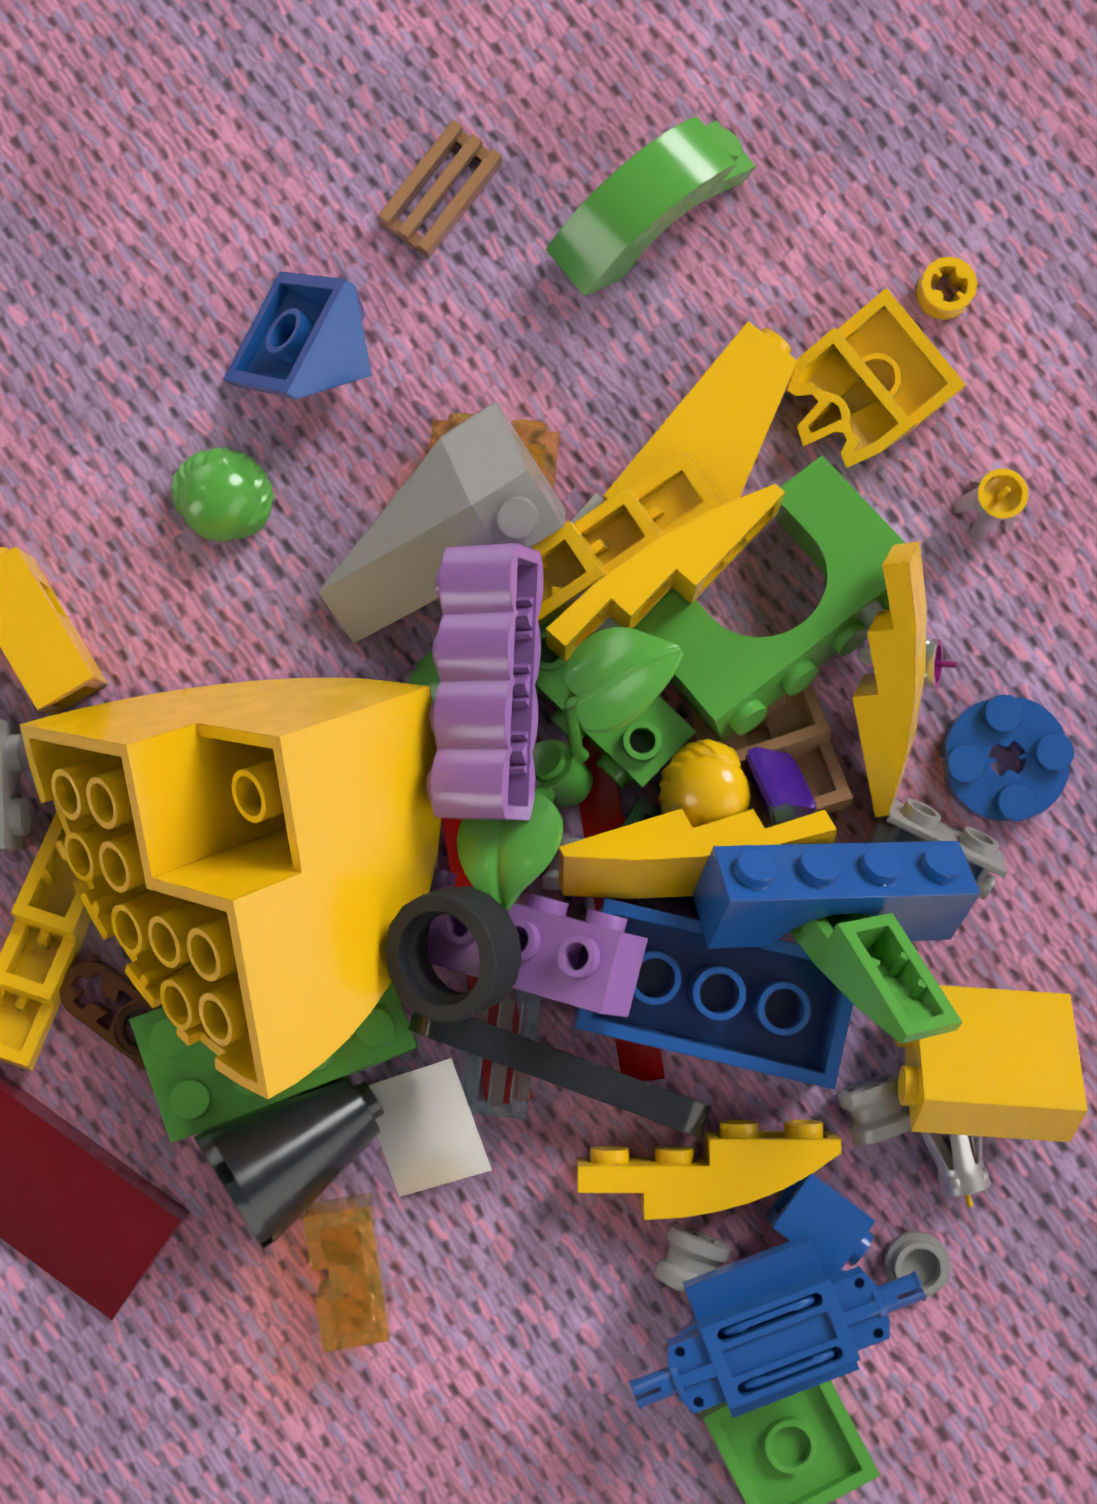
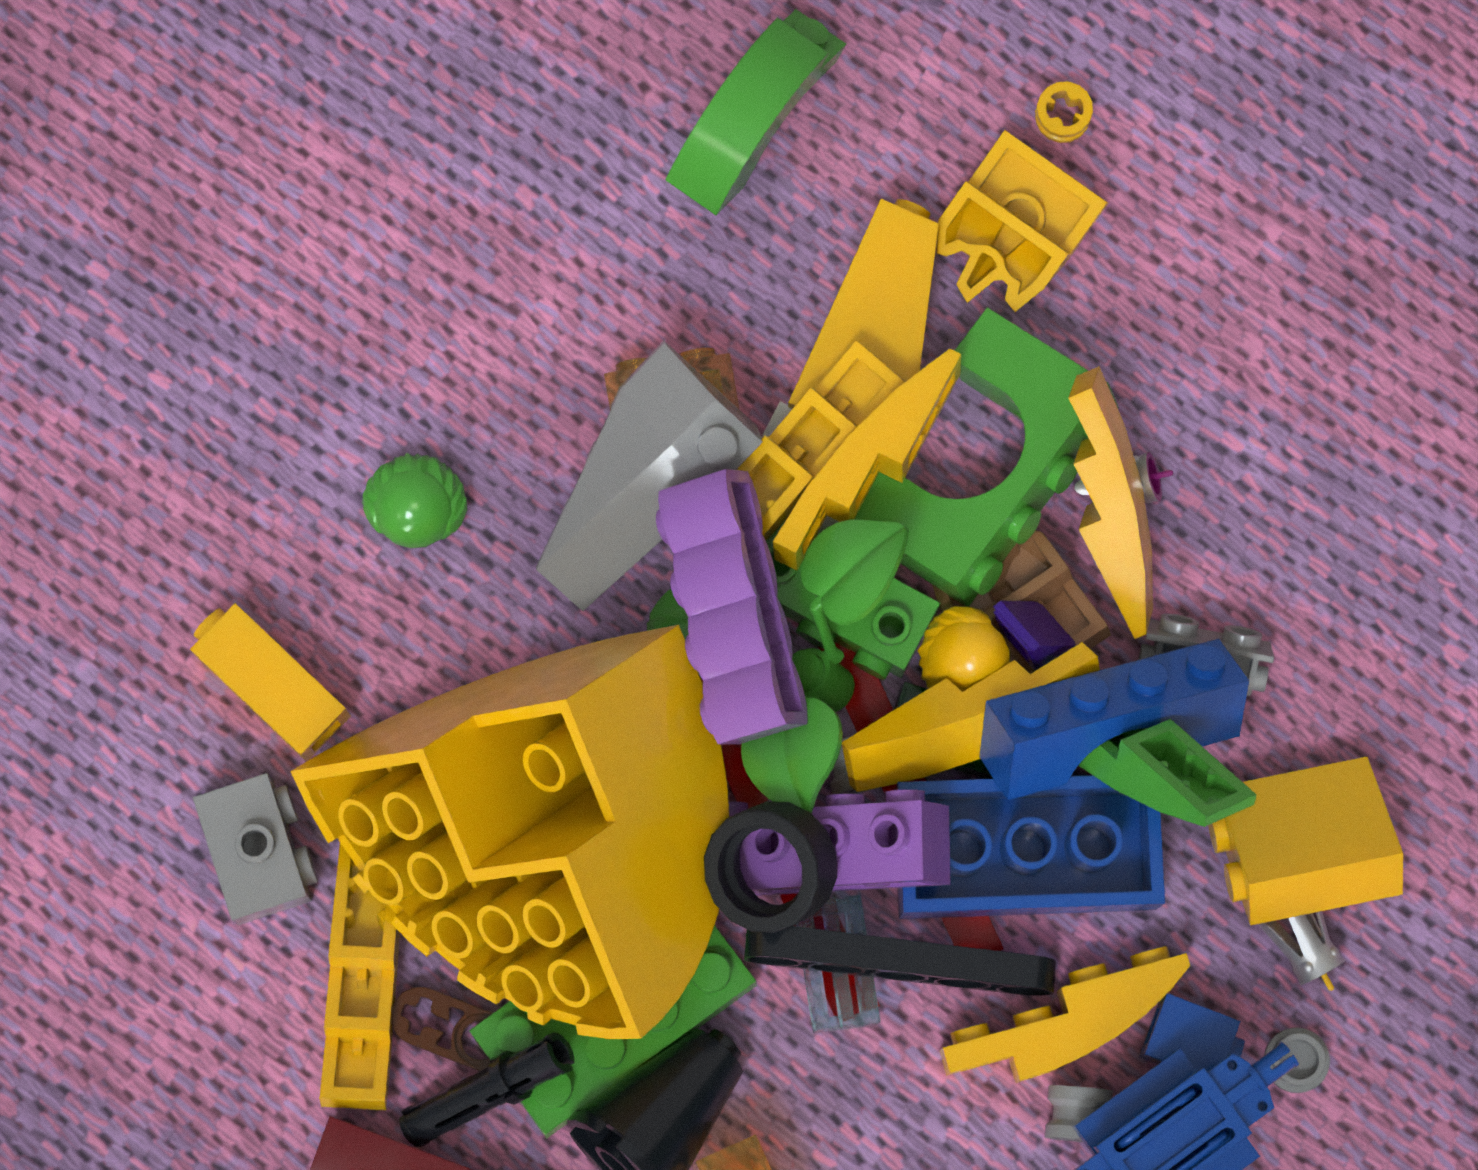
camera: 15 degrees left, 5 degrees down
(142, 1084) = (506, 1080): none -> black pin
(303, 338) = (452, 329): blue slope -> none
(428, 1129) = (789, 1058): white sticker -> none
(471, 148) = (562, 98): medium nougat tile -> none
(874, 1109) = (1213, 920): light grey wheel -> none
(997, 498) = (1166, 303): yellow piece -> none
(1002, 722) = (1233, 517): blue plate -> none

